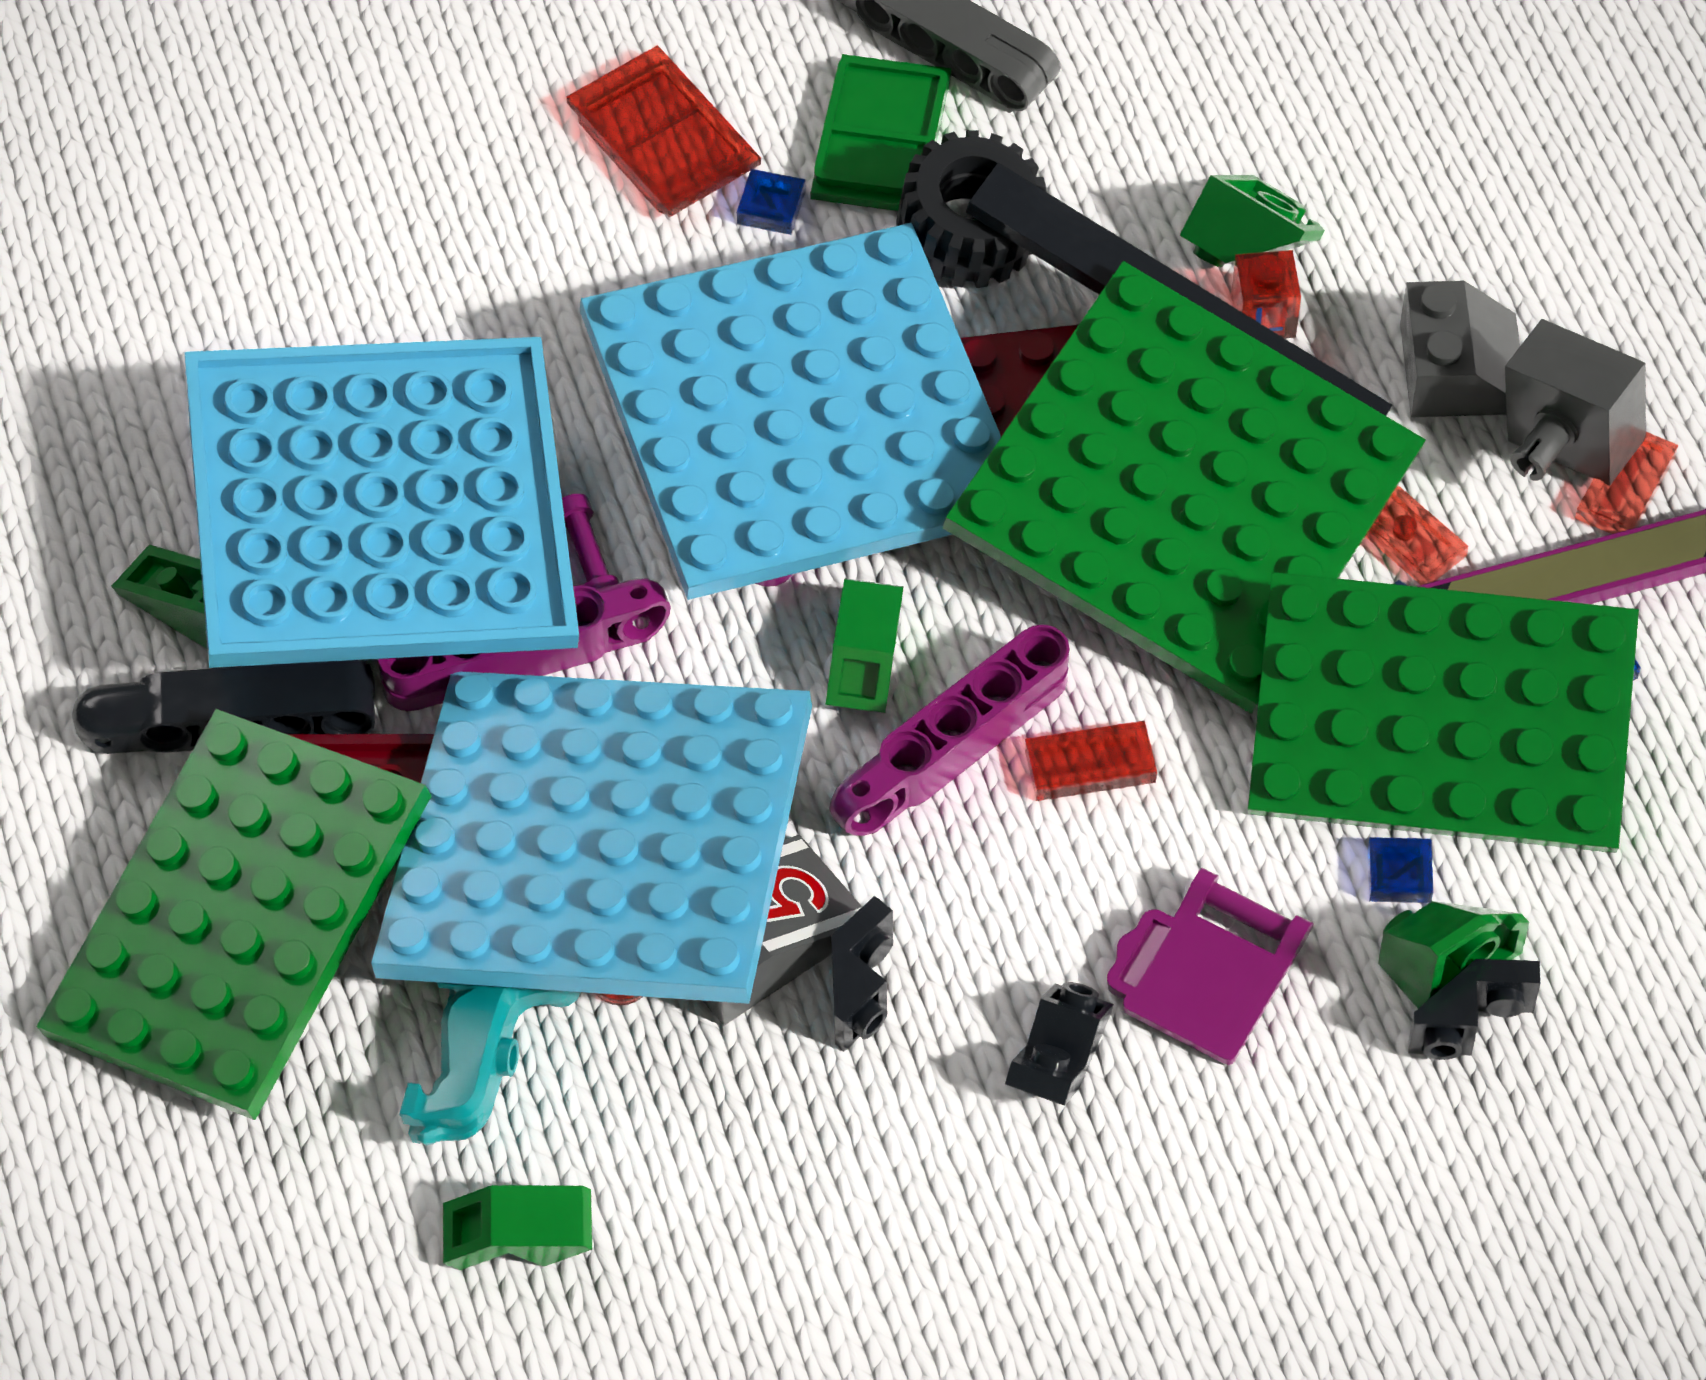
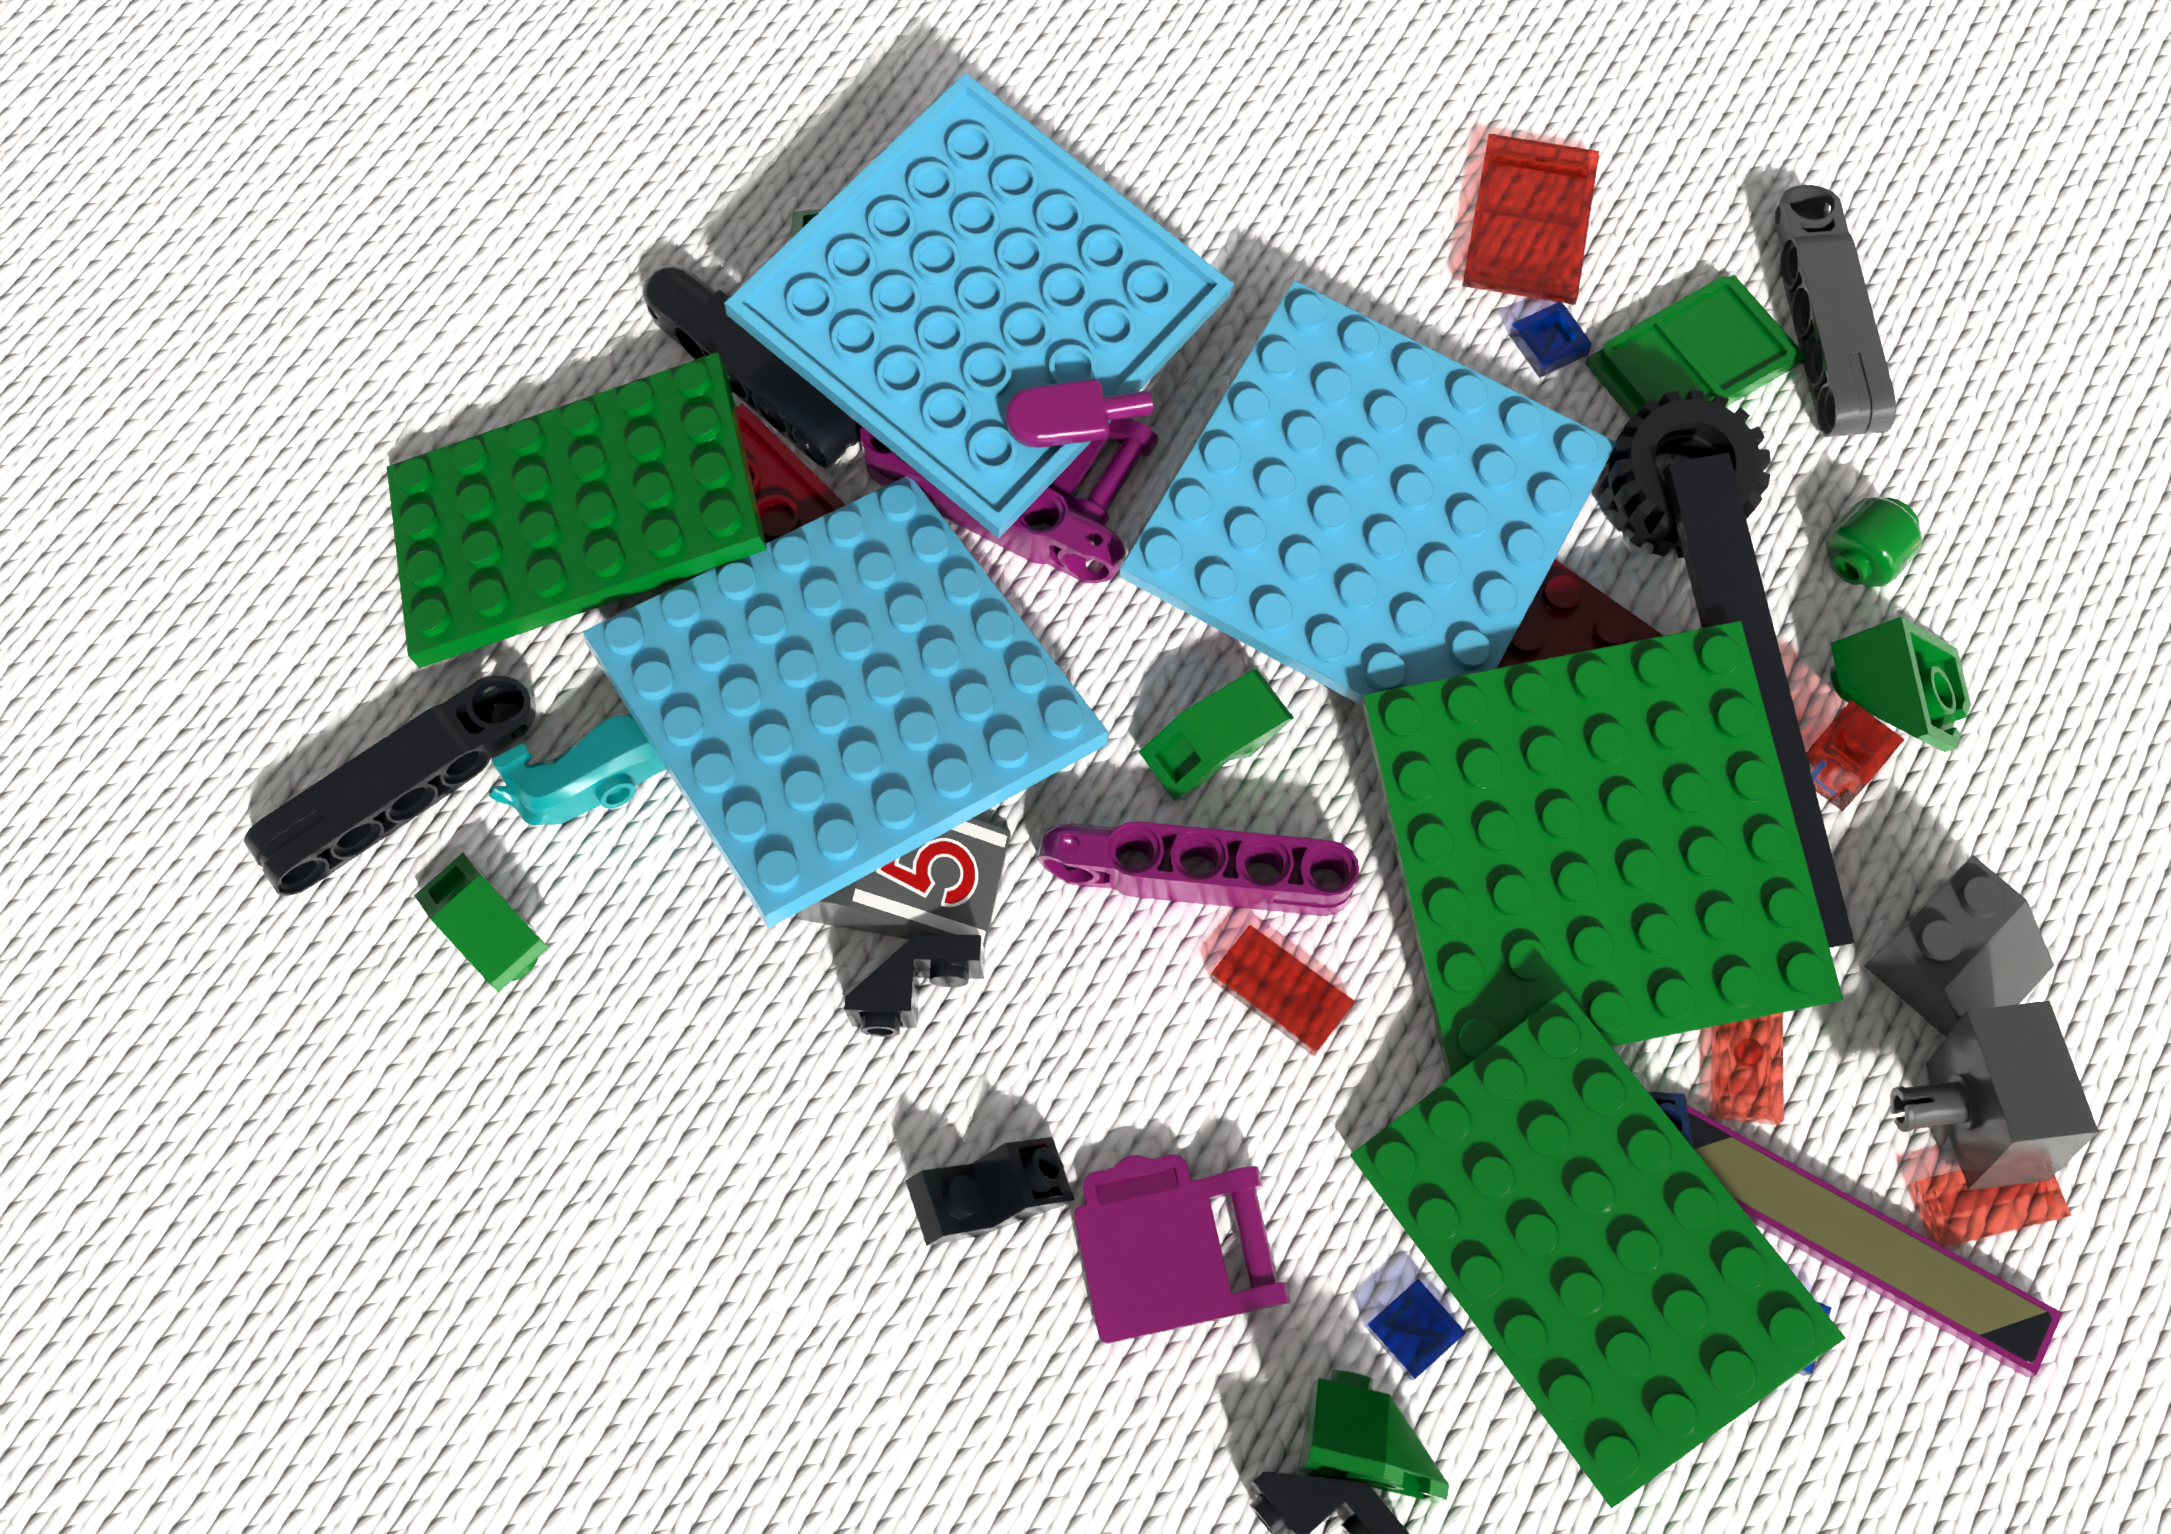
camera: 50 degrees right, 10 degrees up
(332, 1211) = (389, 784): none -> black piece
(539, 515) = (1070, 412): none -> magenta piece
(1131, 150) = (1874, 541): none -> green head

